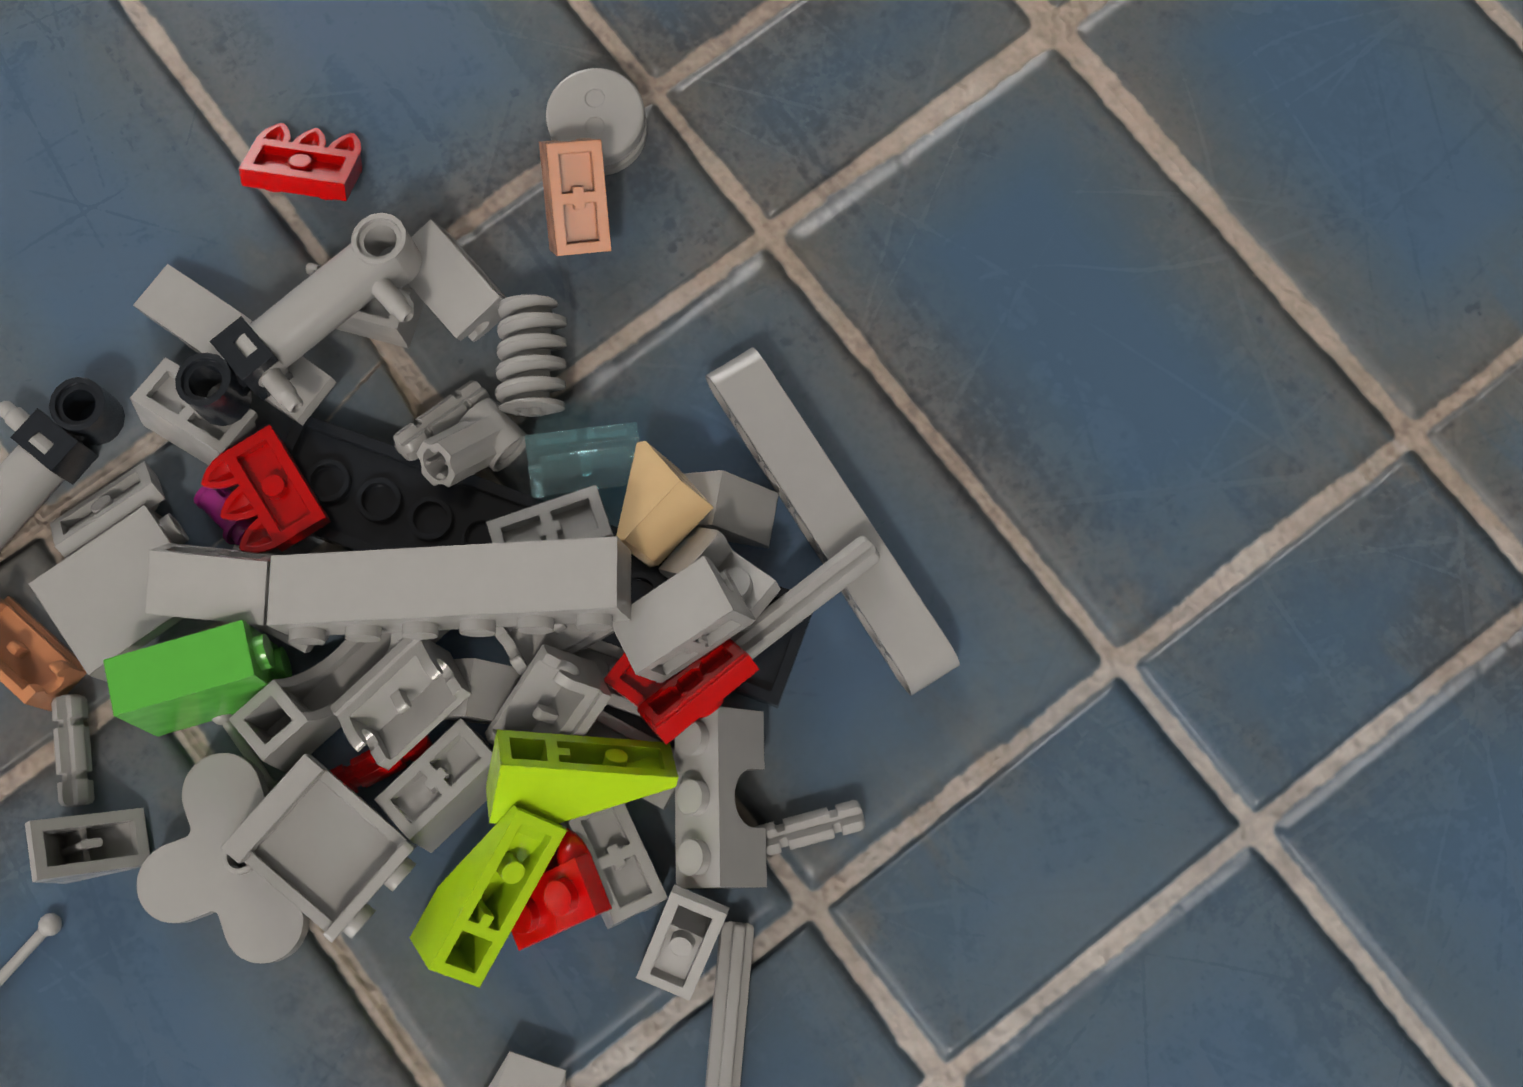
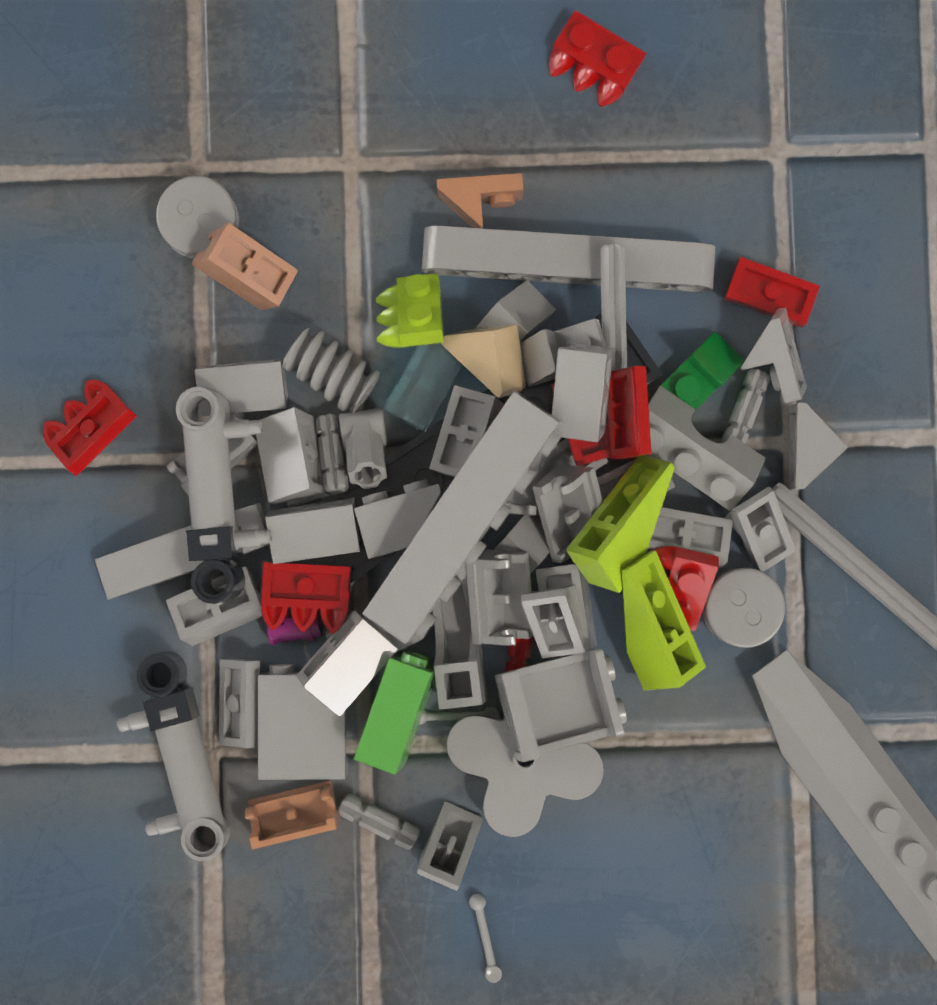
camera: 55 degrees left, 10 degrees up
(340, 453) = (313, 530): none -> light grey hinge
(403, 517) = (393, 522): none -> light grey slope
(407, 379) = (291, 458): none -> light grey hinge
(412, 773) = (555, 621): none -> light grey slope
(581, 985) = (744, 607): none -> light grey head
(652, 397) = (412, 312): none -> lime plate
(815, 751) = (703, 371): none -> green slope
(817, 931) = (810, 446): none -> light grey slope
(823, 369) = (467, 193): none -> nougat slope
(899, 812) = (779, 347): none -> light grey slope
(957, 762) = (770, 289): none -> red plate
(1070, 398) = (596, 56): none -> red plate

